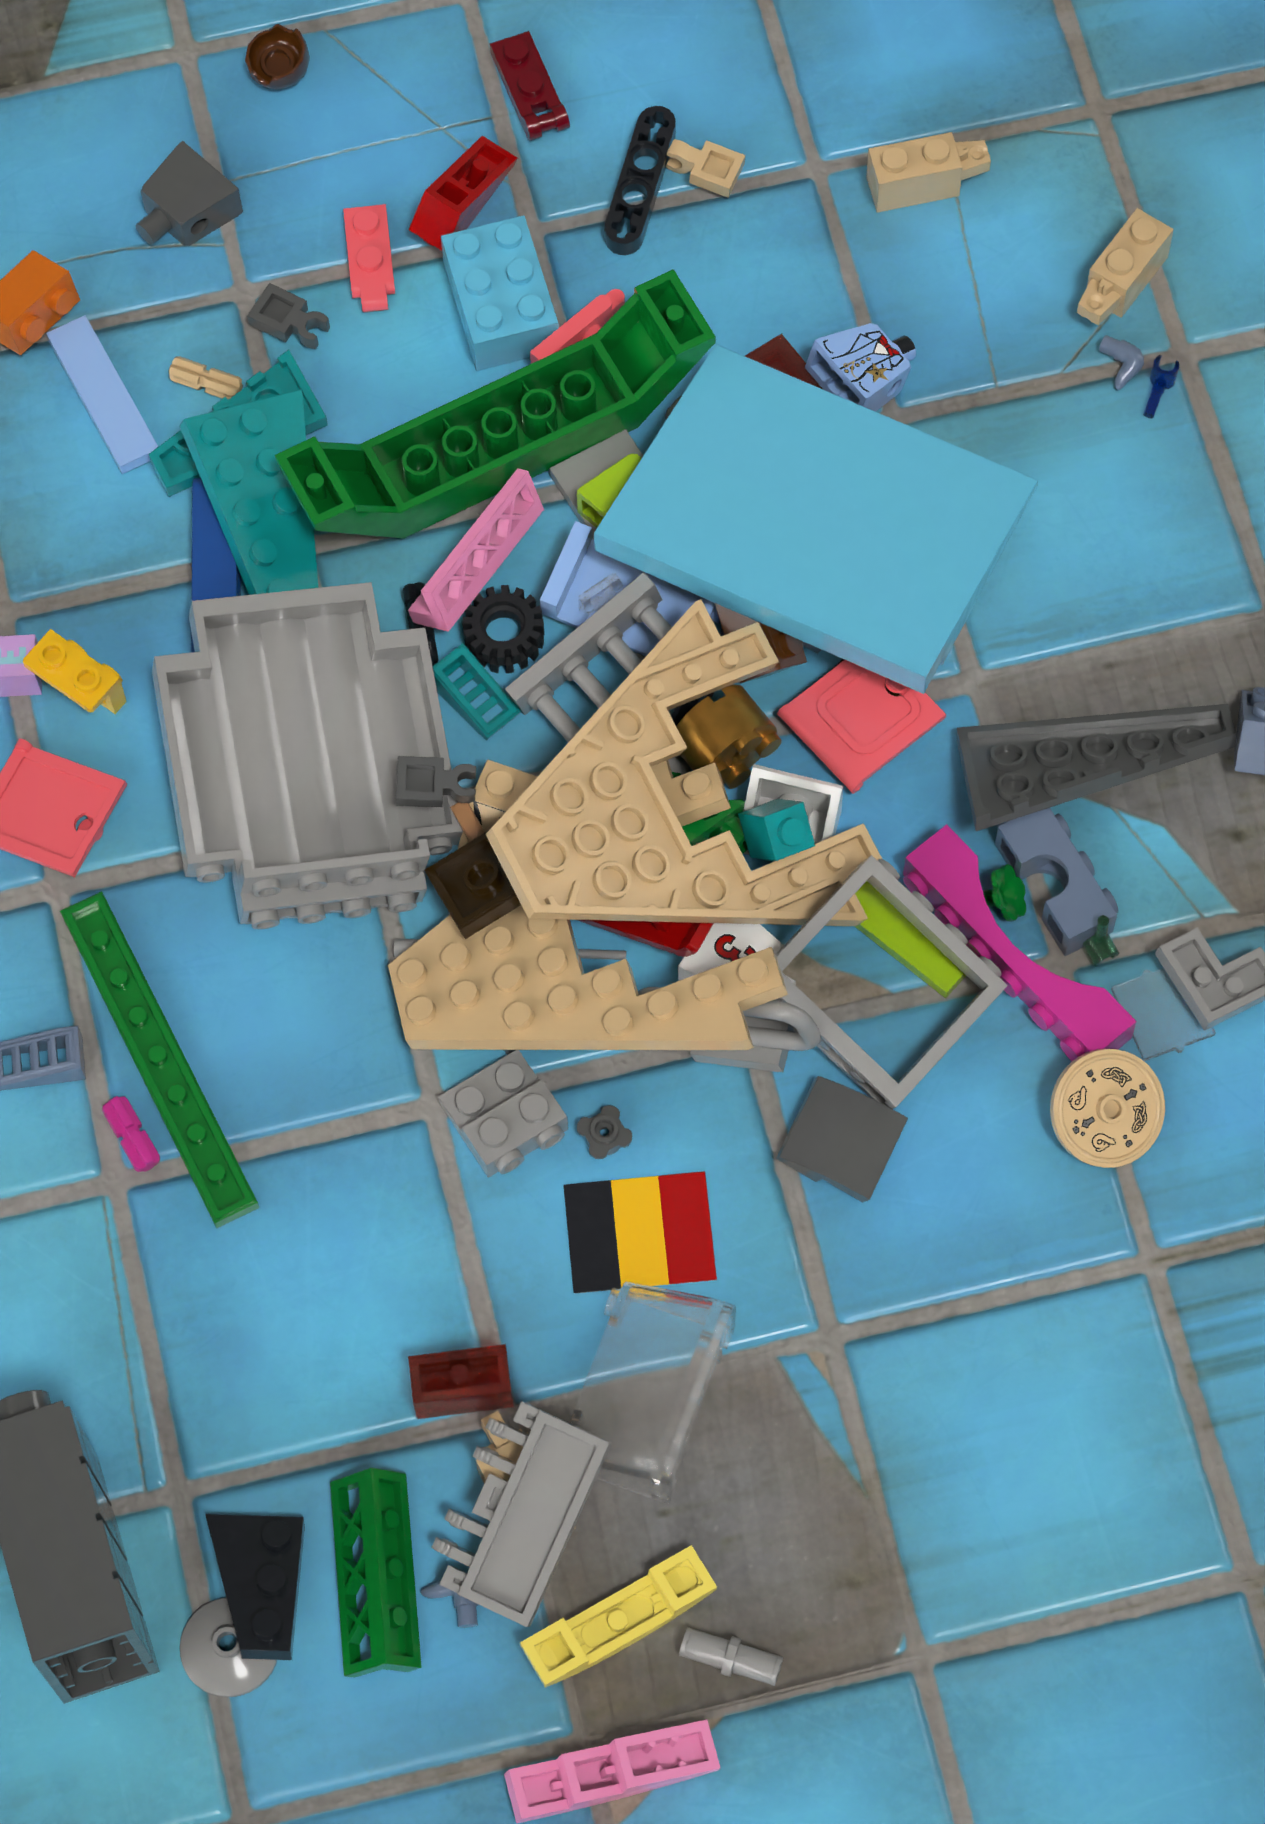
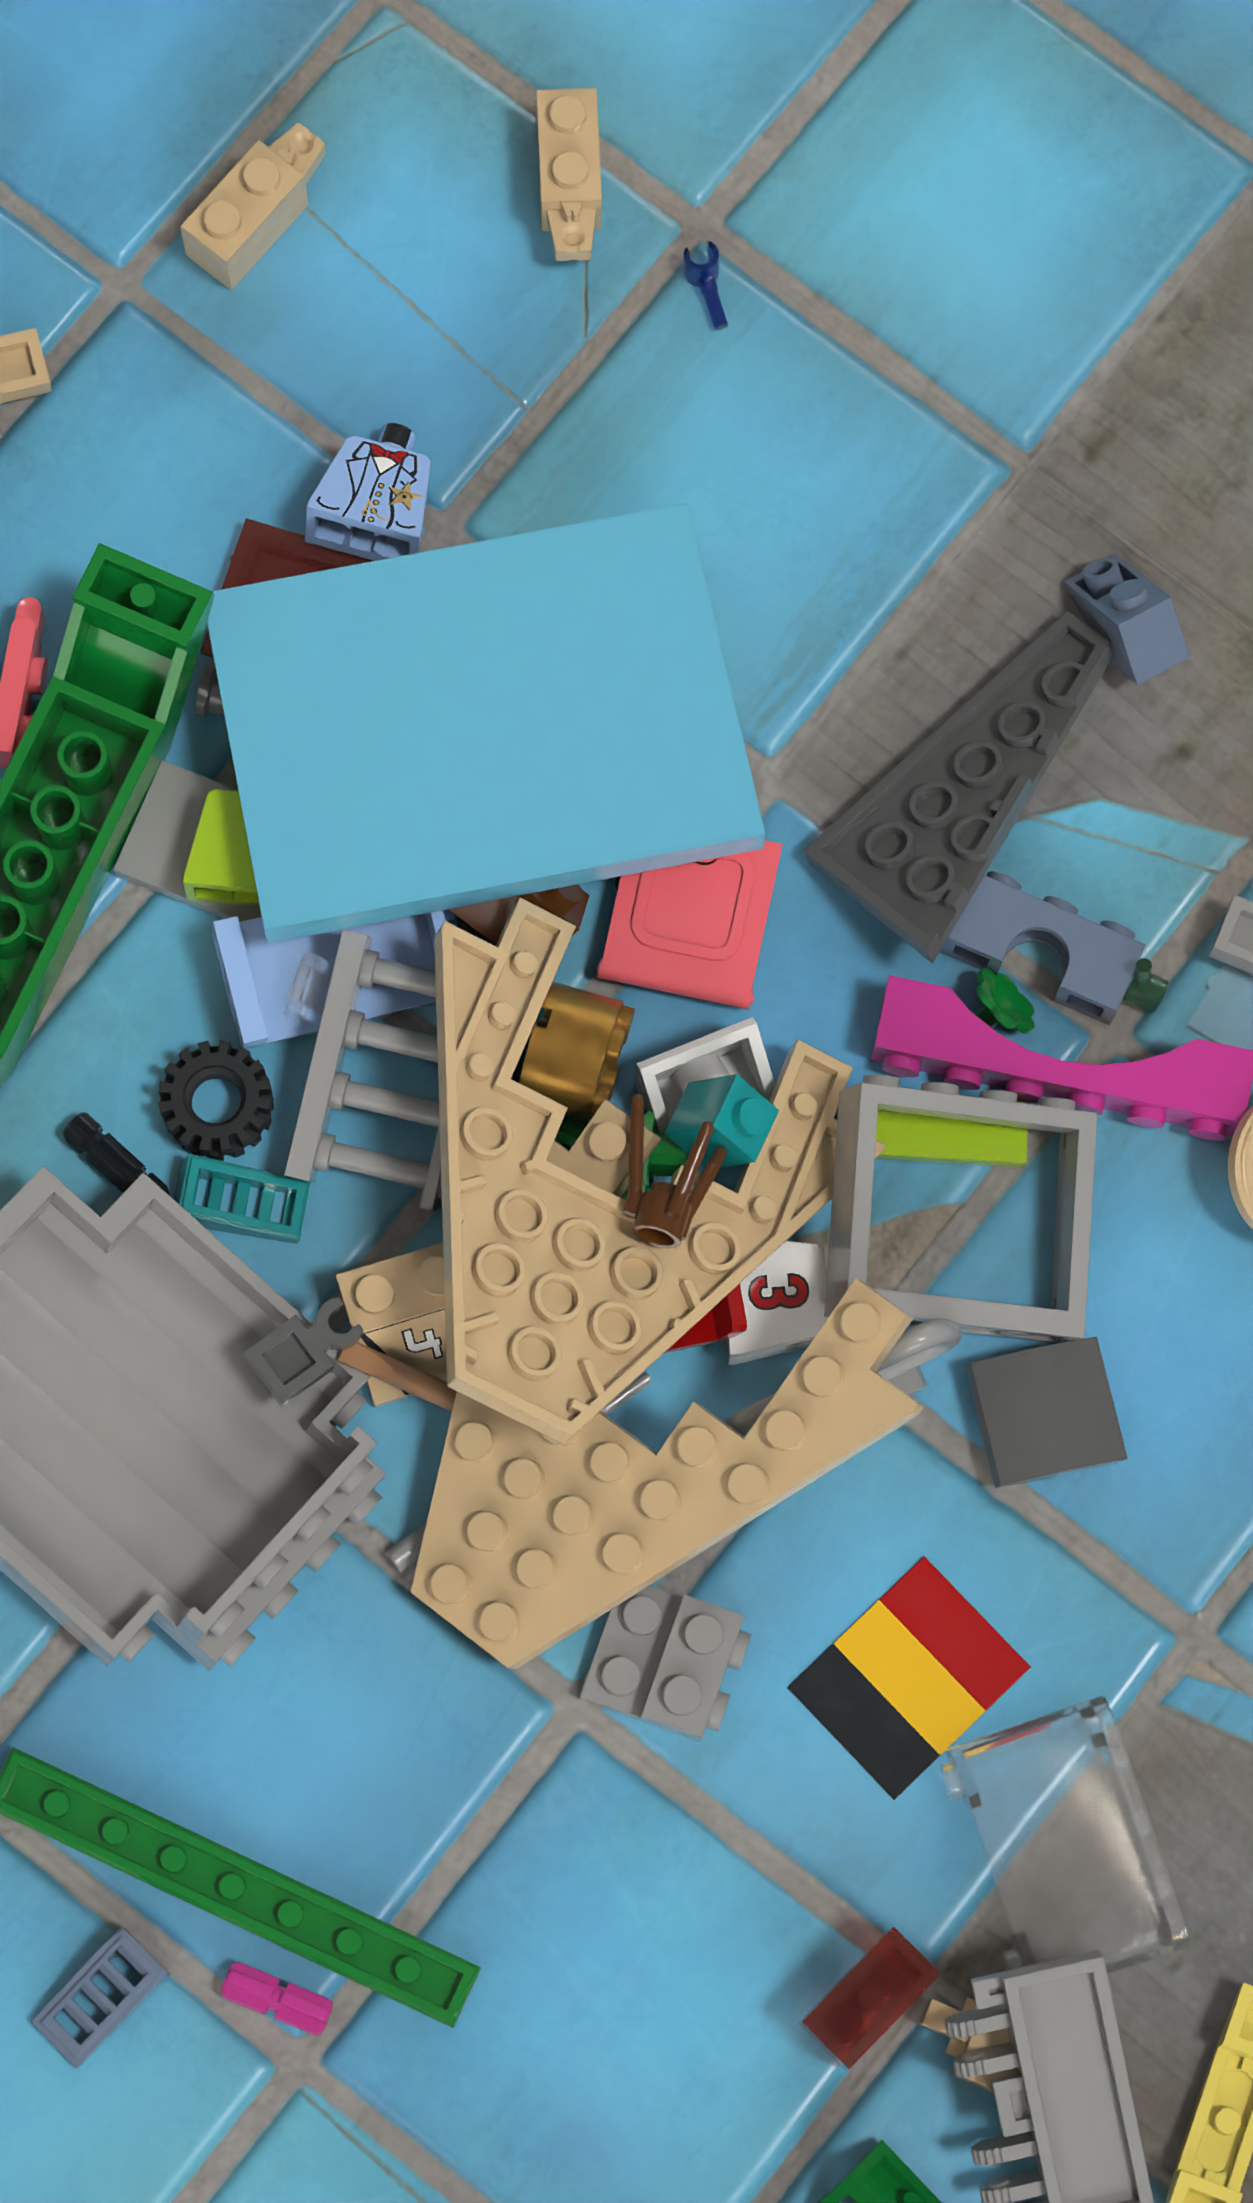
camera: 45 degrees left, 10 degrees up
(473, 886) = (441, 1431): dark brown tile -> none
(478, 554) = (123, 1038): bright pink fence -> none
(600, 1145) = (772, 1604): dark grey plate -> none
(692, 838) = (666, 1209): none -> reddish brown plant
(1127, 354) = (646, 270): sand blue animal -> none

